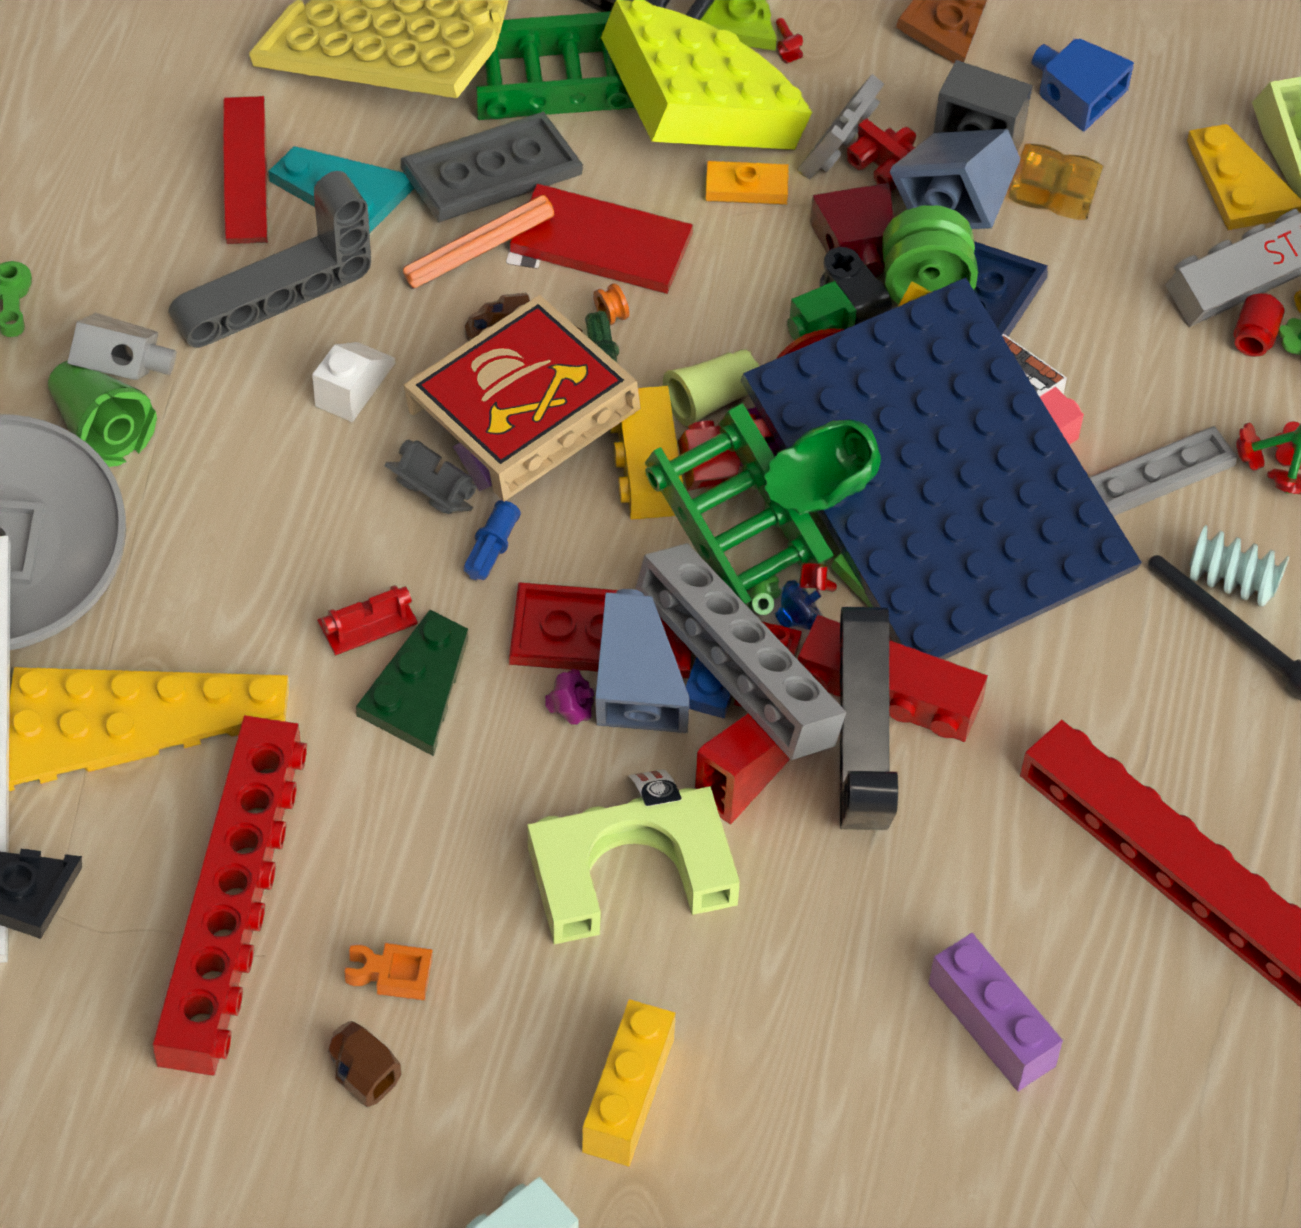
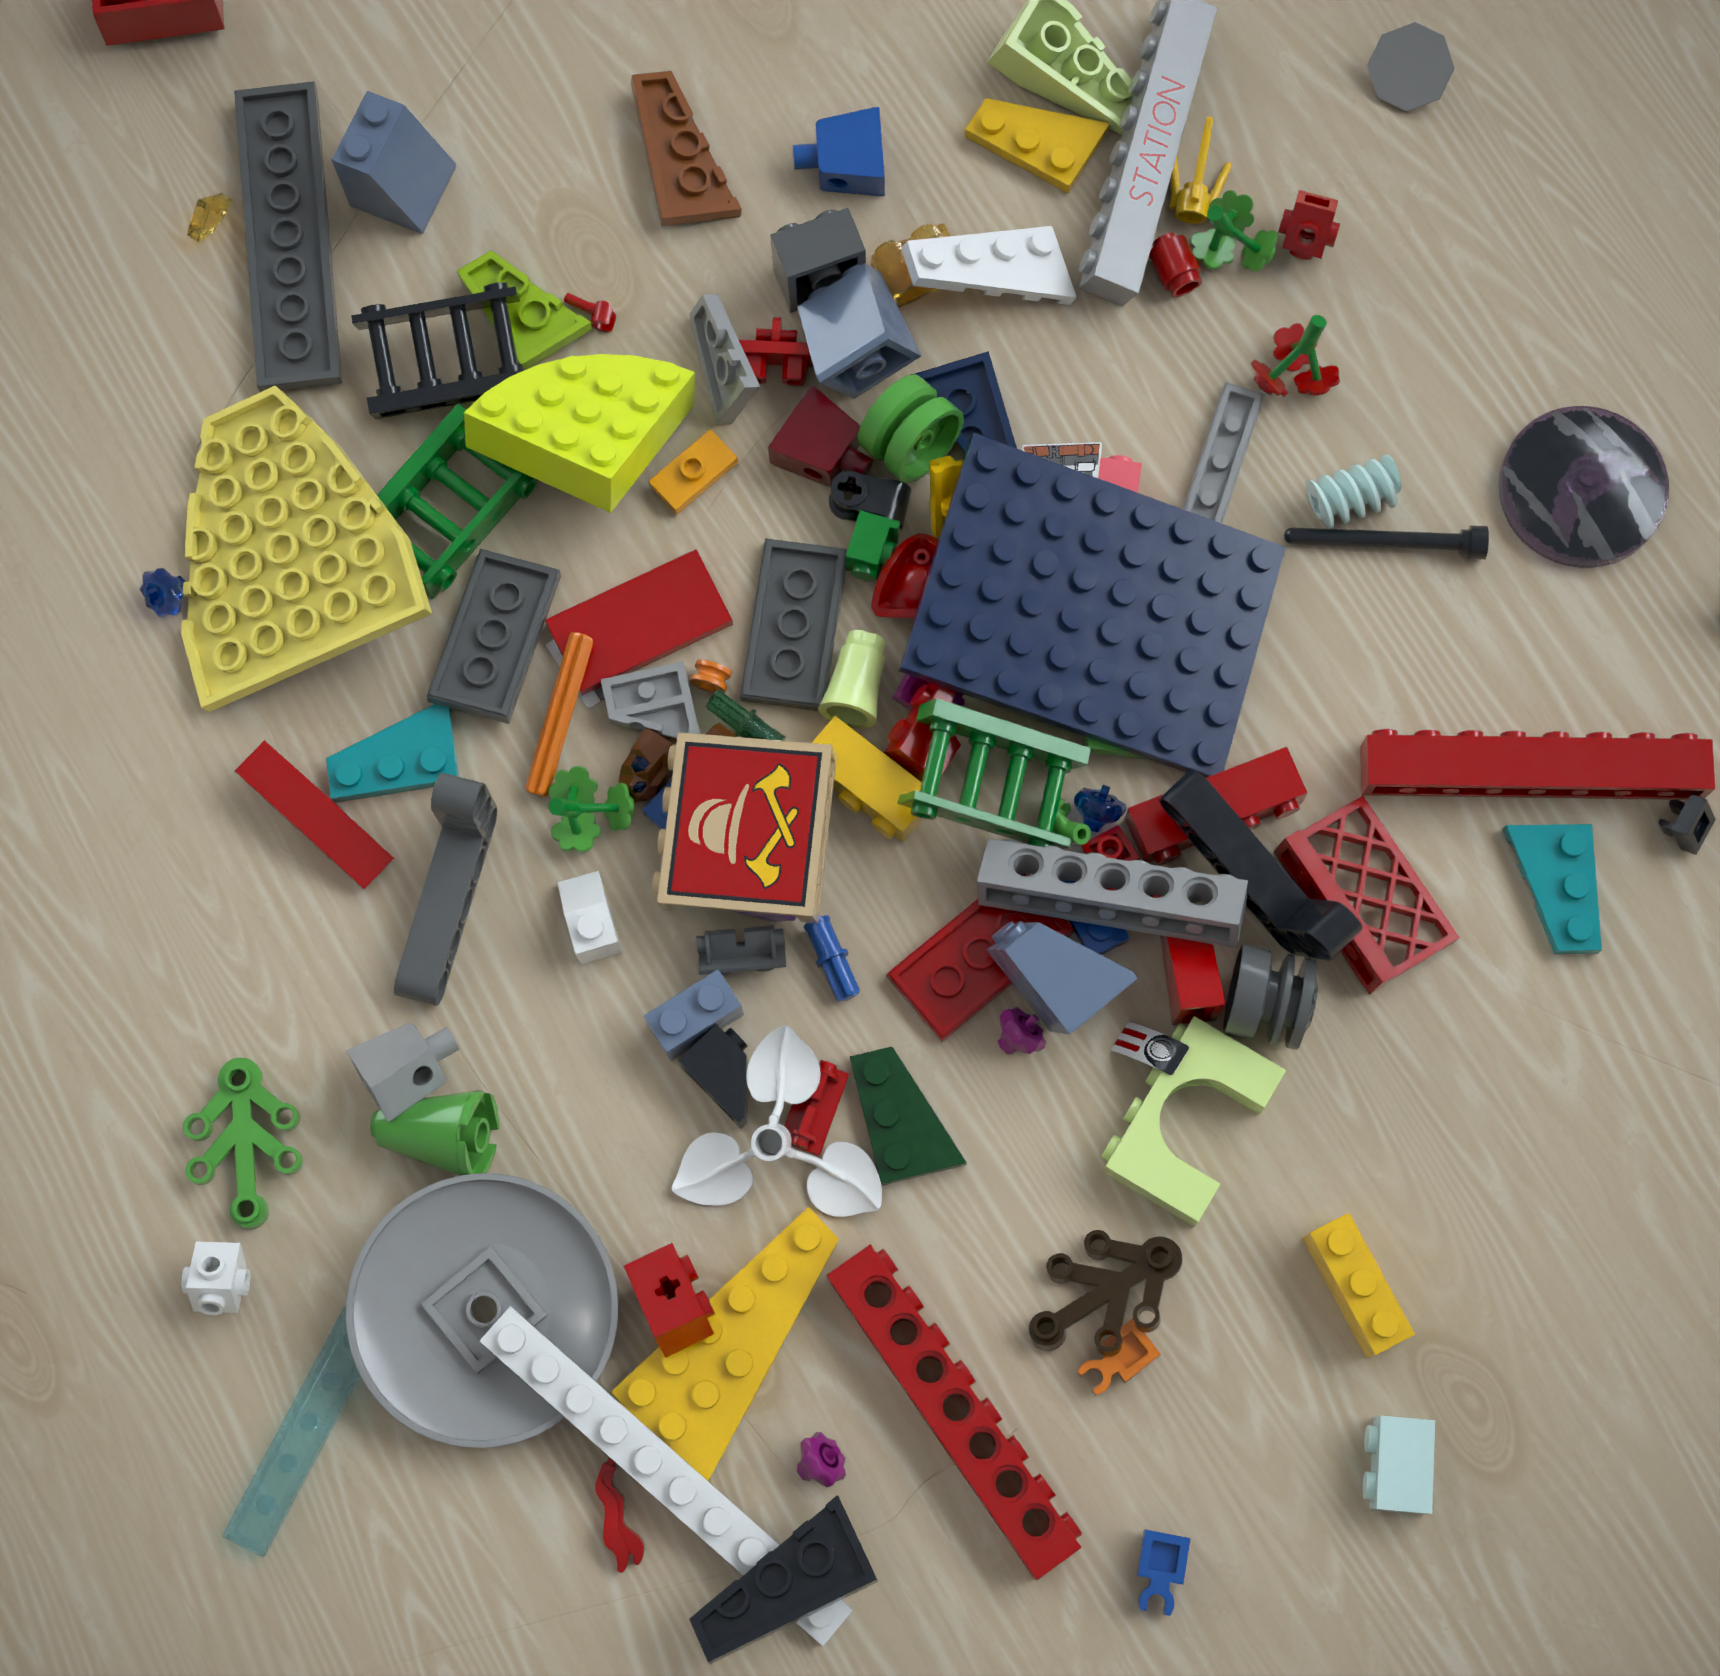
camera: 40 degrees left, 20 degrees up
(101, 837) = (821, 1460): none -> magenta piece
(120, 637) = (675, 1321): none -> red brick
(252, 597) = (790, 1072): none -> white plant
(259, 1134) = (1162, 1561): none -> blue plate
(329, 540) = (720, 1071): none -> black slope
(351, 488) = (693, 1013): none -> sand blue brick
(363, 1063) = (1173, 1446): reddish brown rock -> none
(432, 296) = (574, 801): none -> bright green plant
(488, 932) = (1111, 1288): none -> dark brown plant
(556, 280) = (652, 700): none -> light grey wing
(711, 320) = (793, 624): none -> dark grey tile
(783, 822) = (1270, 996): none -> dark grey wheel
(815, 576) = (1093, 775): red hand -> none
(823, 466) = (1041, 696): green hair -> none
(906, 834) = (1317, 882): none -> red fence
(995, 1011) = (1530, 999): medium lavender brick -> none
(1117, 963) = (1563, 882): none -> teal wing
(1126, 224) = (995, 262): none -> white wing
(1273, 1009) = (1692, 823): none -> black tile

